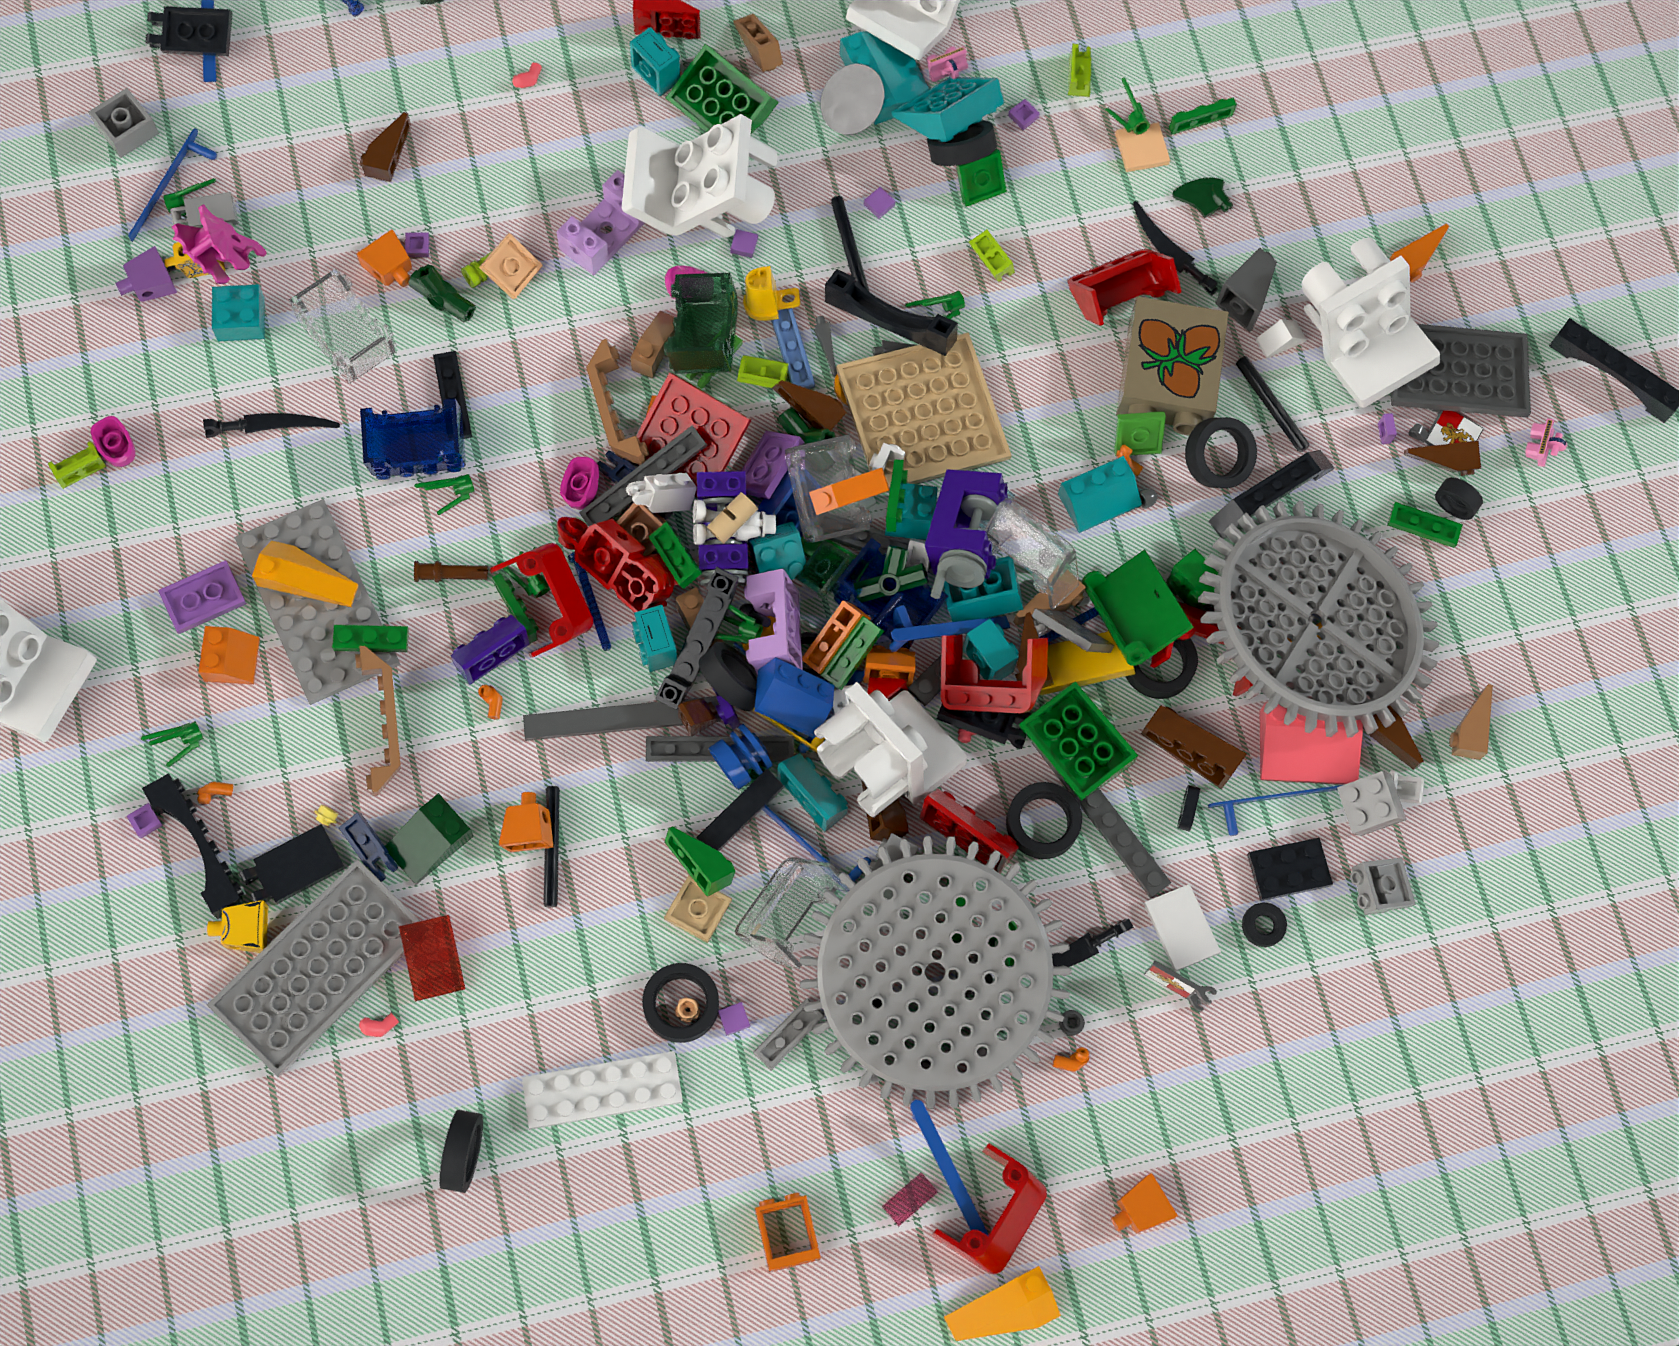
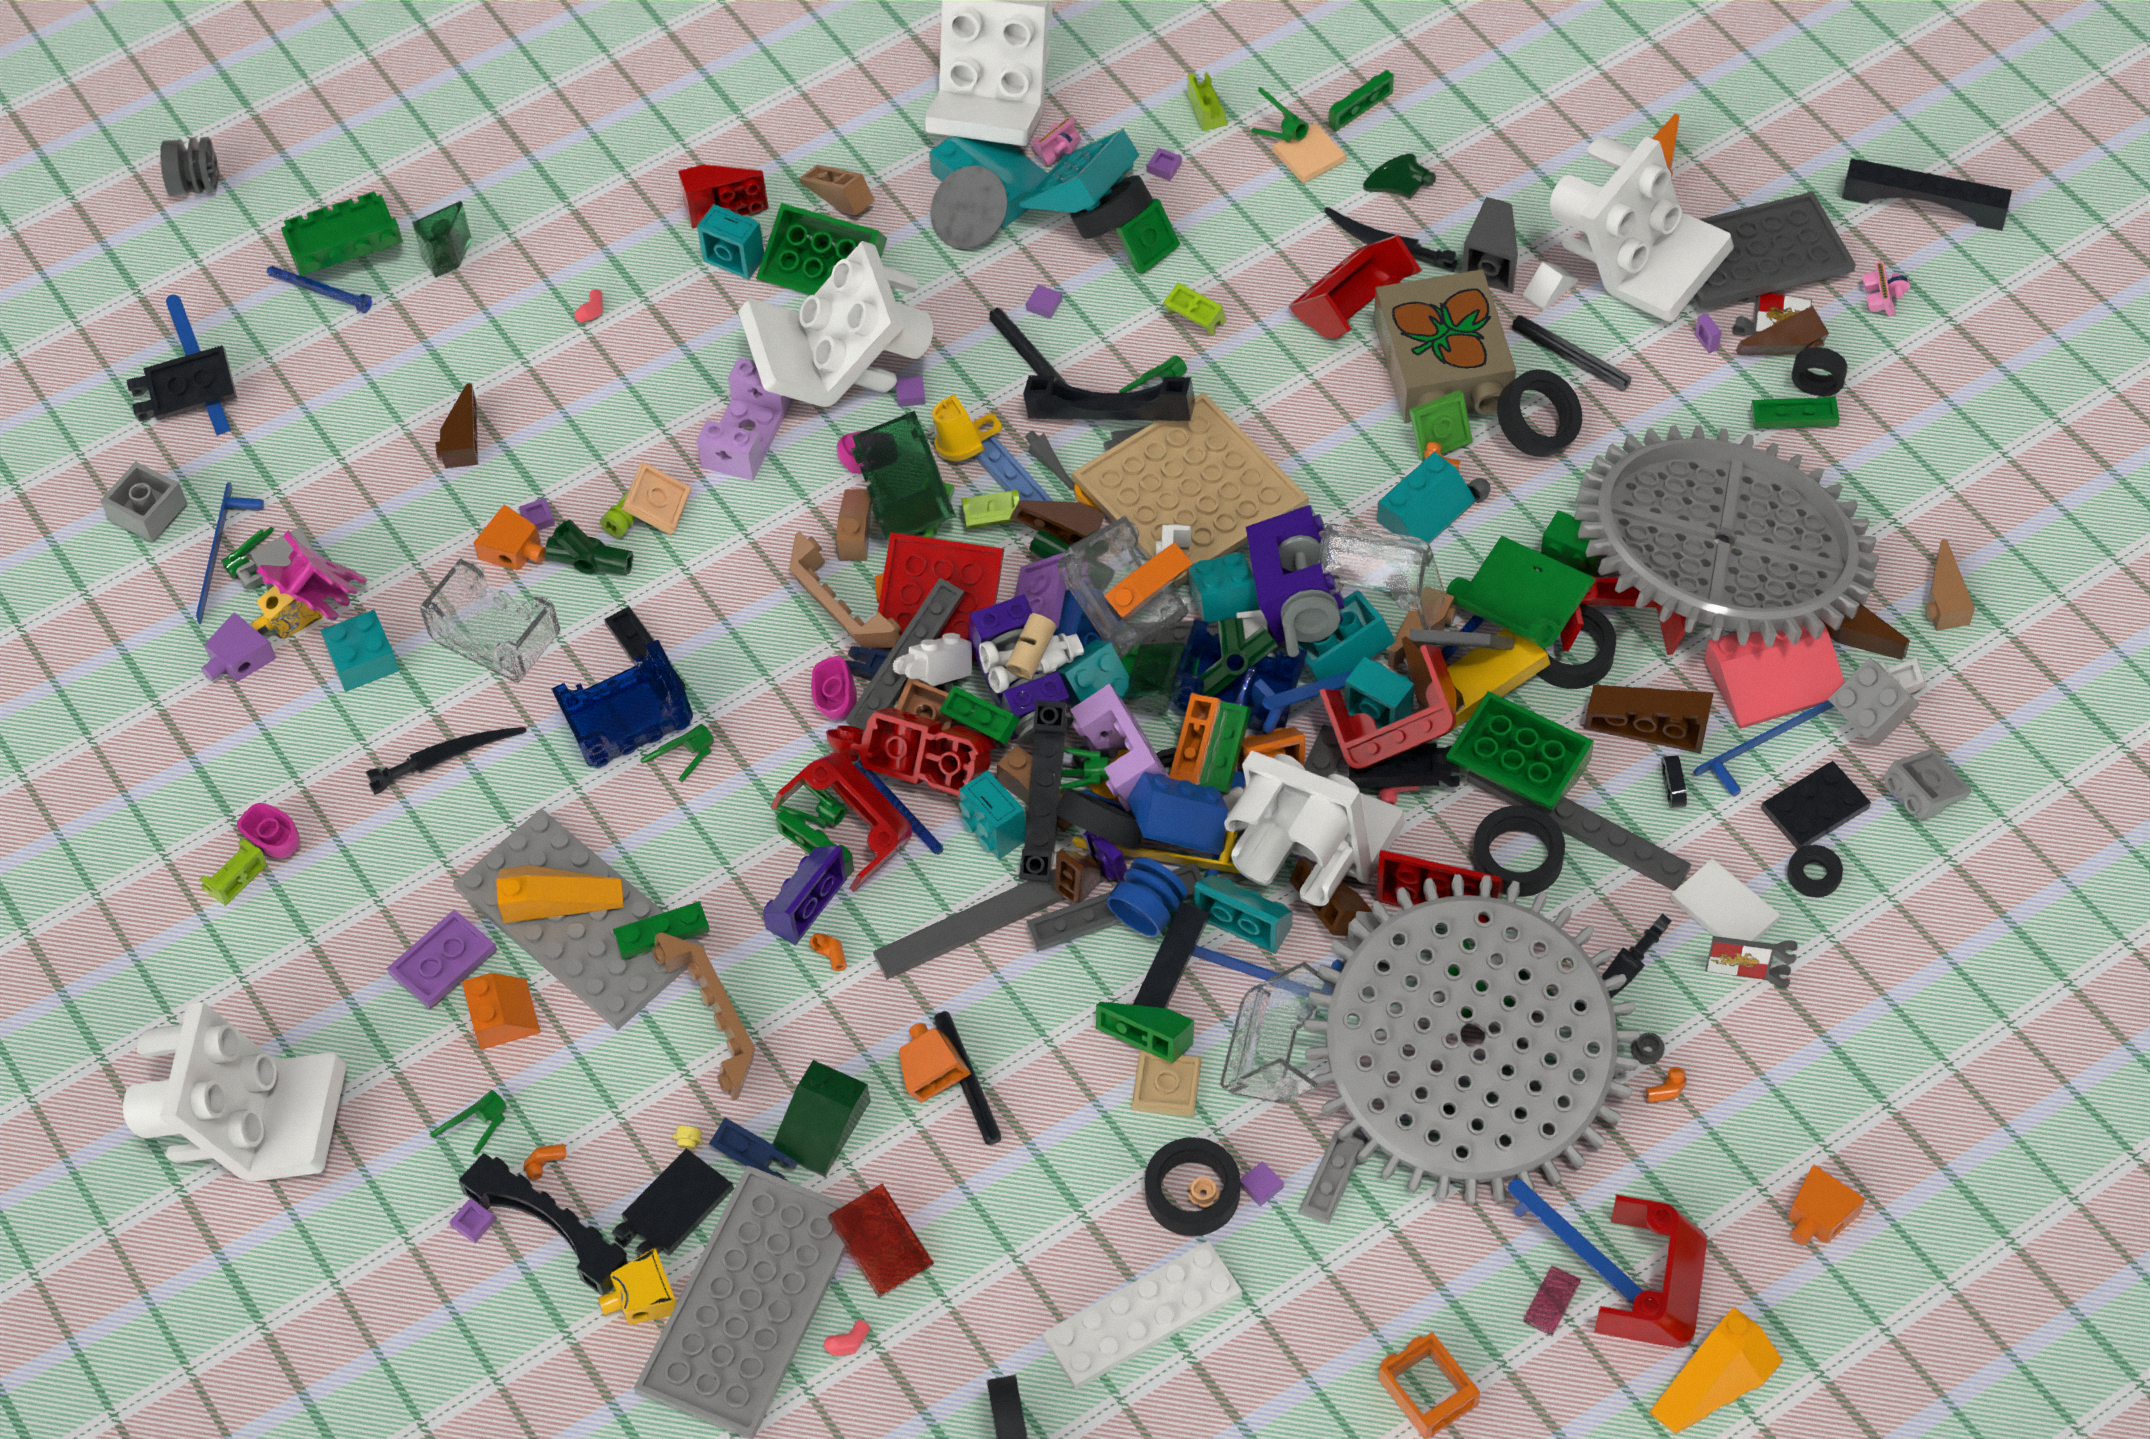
camera: 10 degrees left, 15 degrees down
(437, 572) = (709, 836): reddish brown pin -> none
(896, 496) = (1203, 569): green plate -> none
(1279, 484) = (1612, 428): black slope -> none

